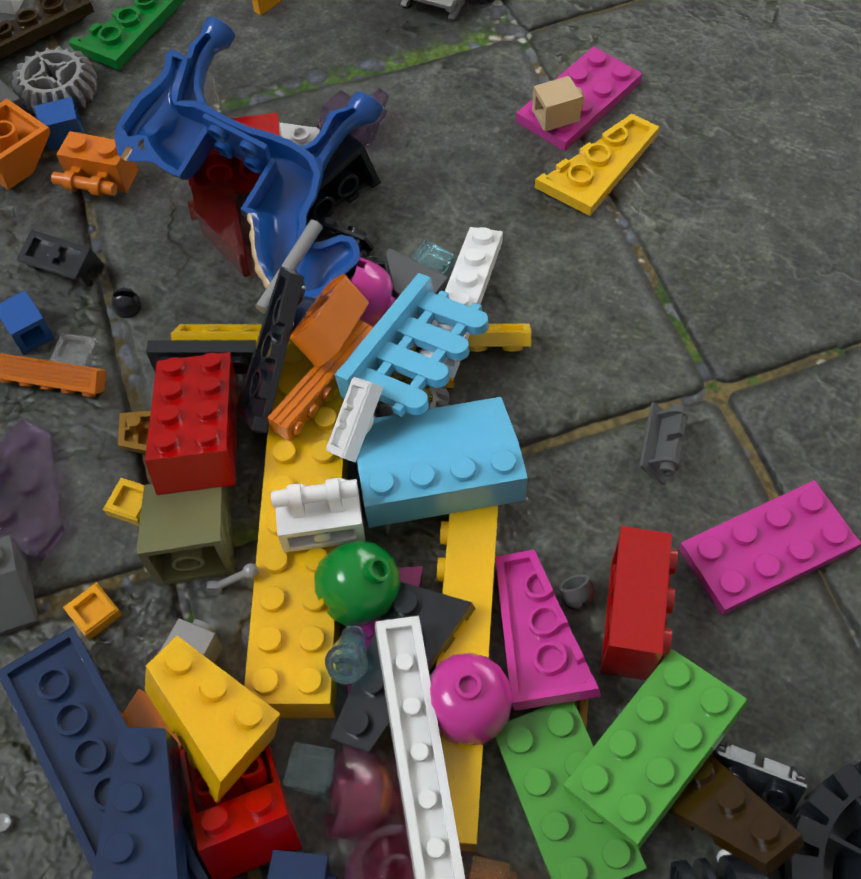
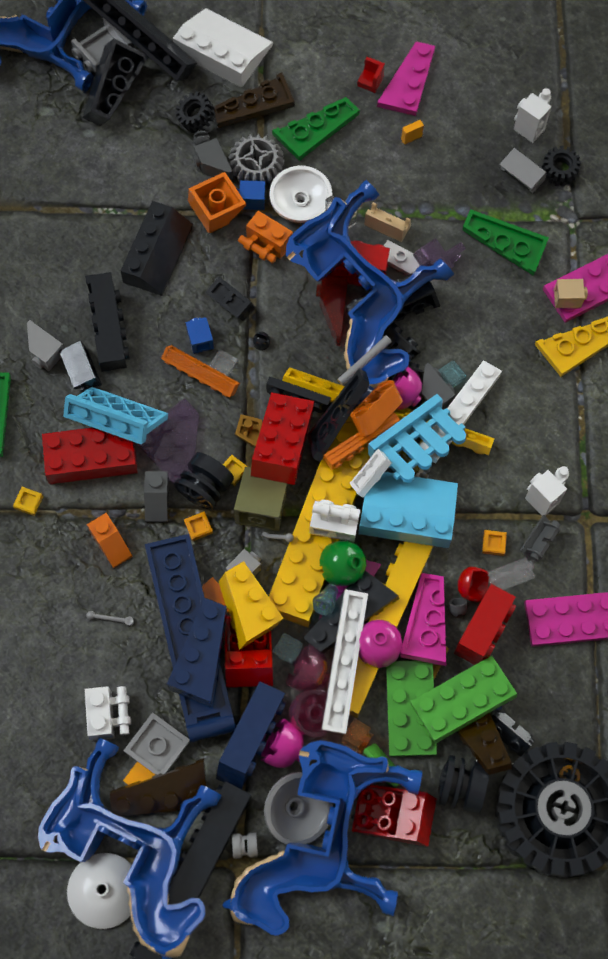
camera: 15 degrees right, 10 degrees up
(78, 530) = (203, 481): none -> black wheel
(112, 93) = (300, 184): none -> white dish
(257, 103) = (387, 223): none -> tan hinge
(442, 75) = (506, 239): none -> green wing
(586, 544) = (473, 583): none -> red hair
(592, 472) = (494, 542): none -> light orange tile
(641, 508) = (512, 574): none -> clear hinge
(642, 363) = (547, 490): none -> white brick

